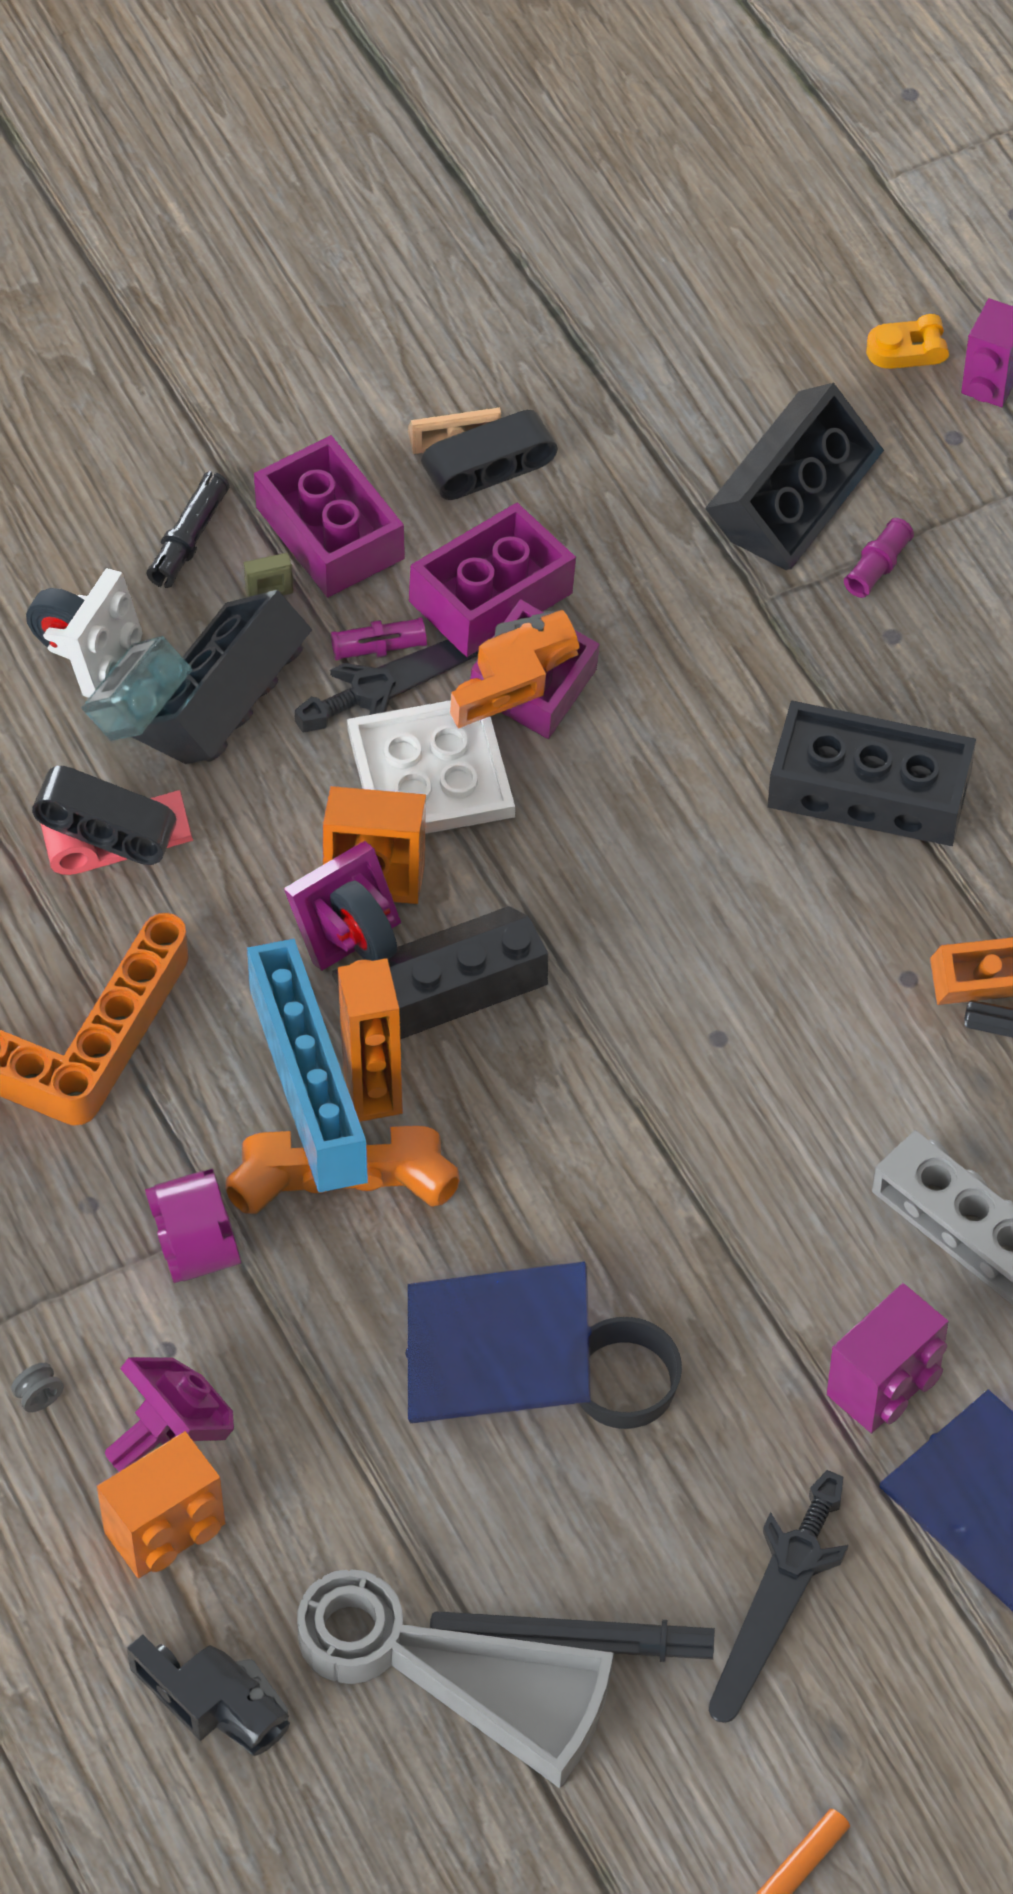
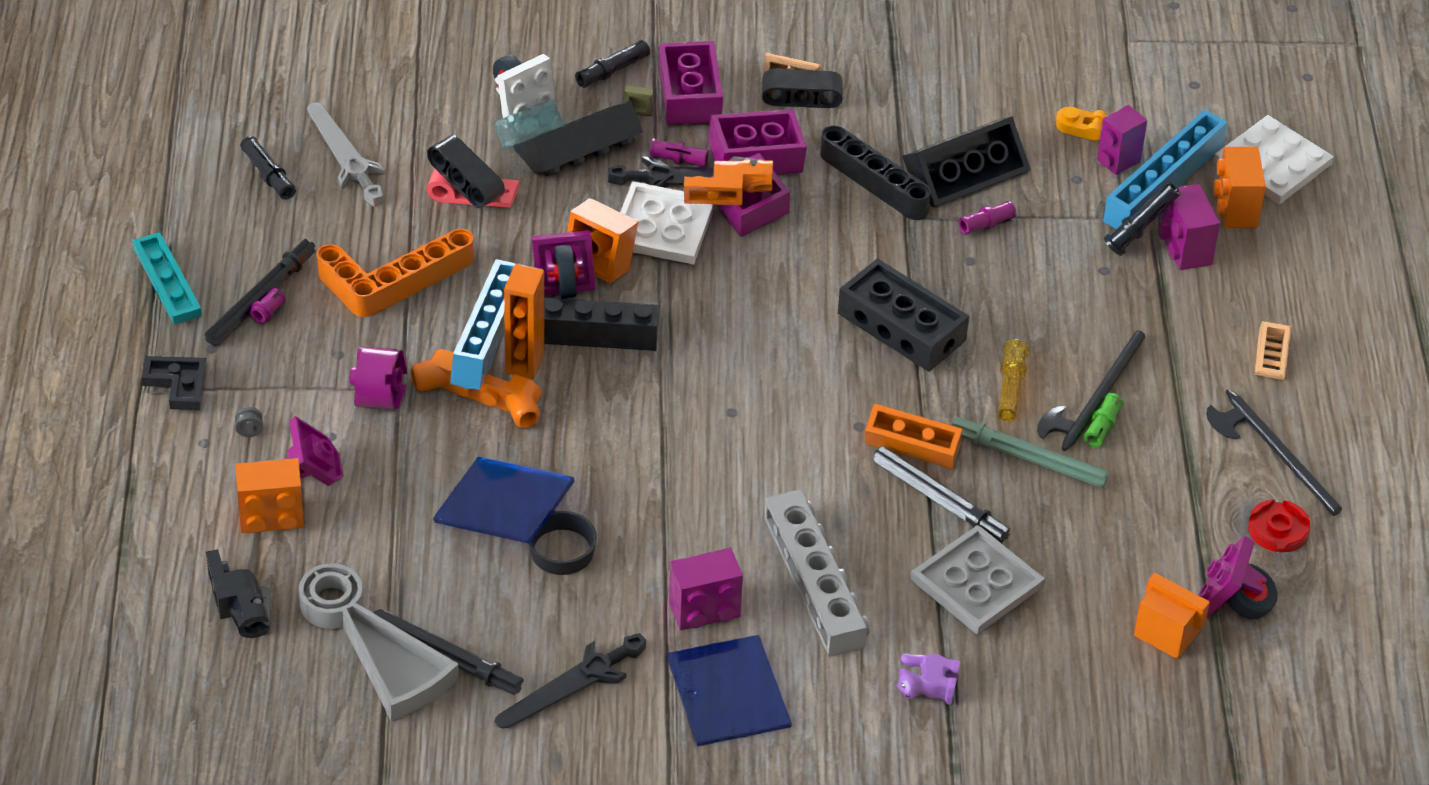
camera: 25 degrees right, 10 degrees down
(680, 551) = (875, 172): none -> black beam

